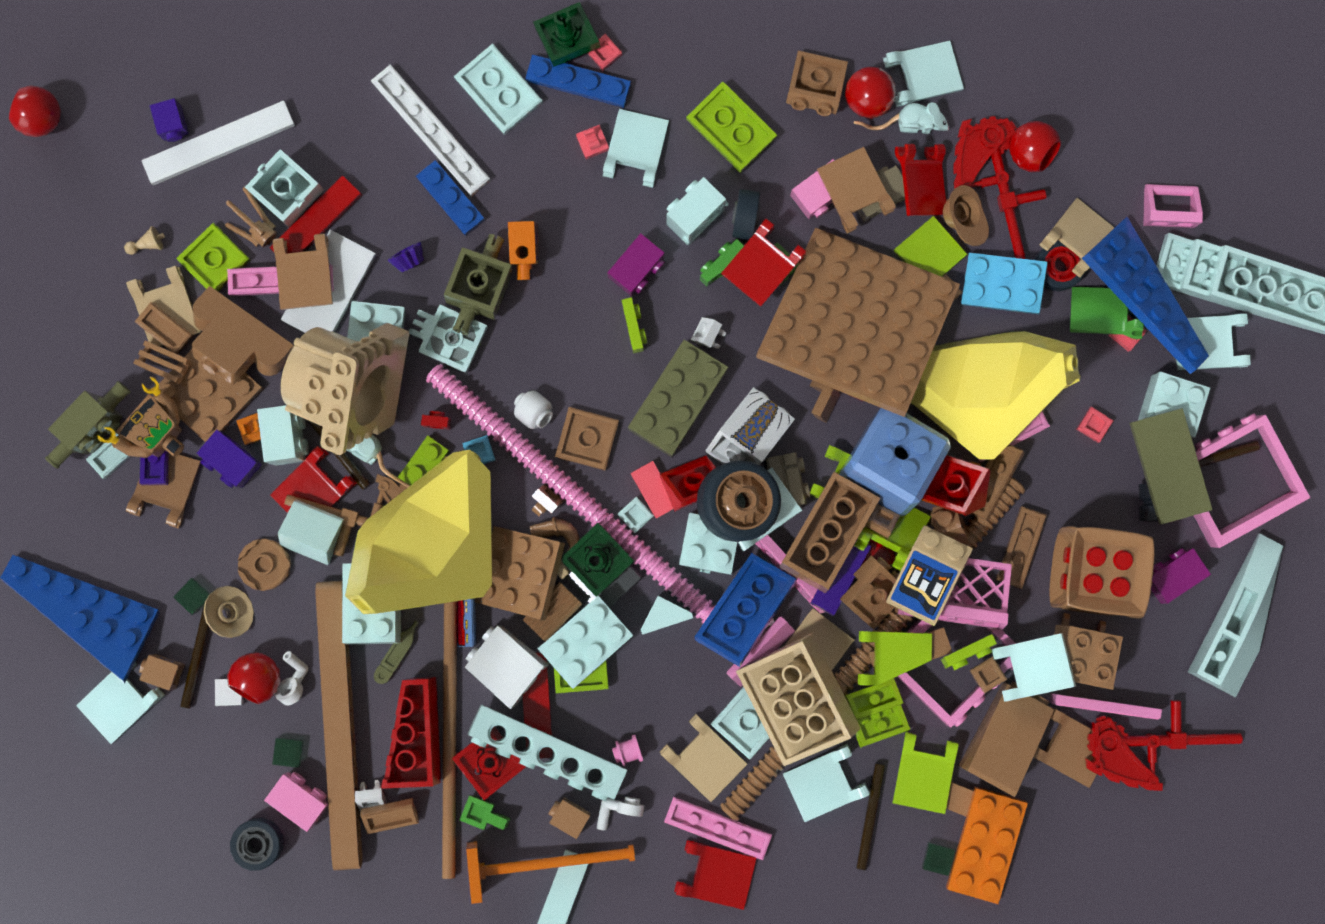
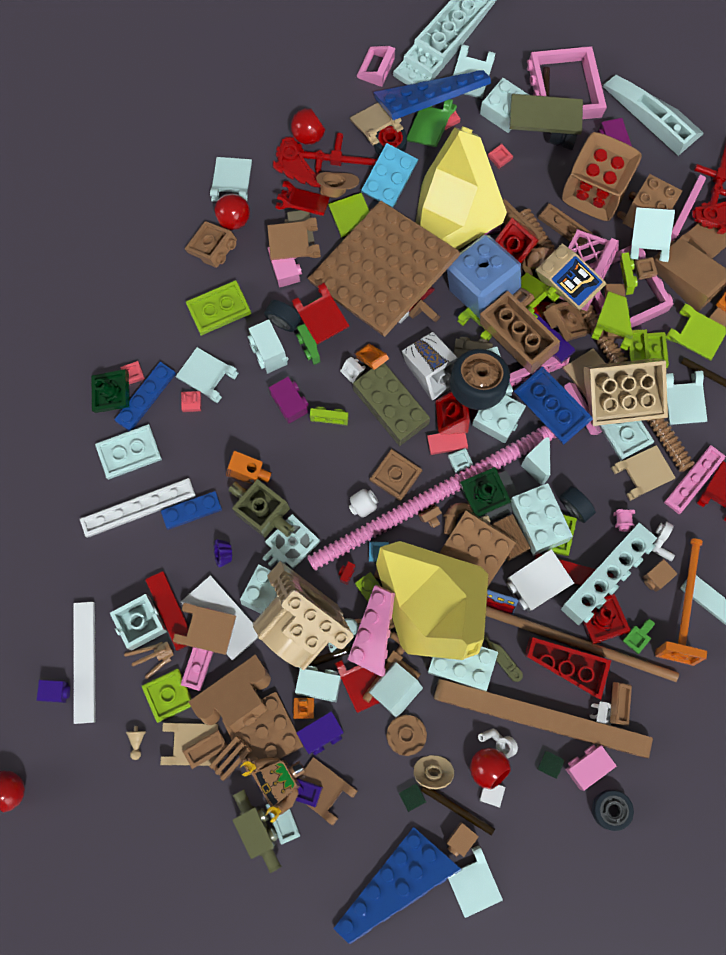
camera: 70 degrees left, 10 degrees down
(366, 479) = (373, 633): none -> bright pink wing
(624, 683) = (577, 504): none -> black wheel
(732, 351) = (372, 356): none -> orange tile
(915, 118) = (259, 193): light aqua animal -> none

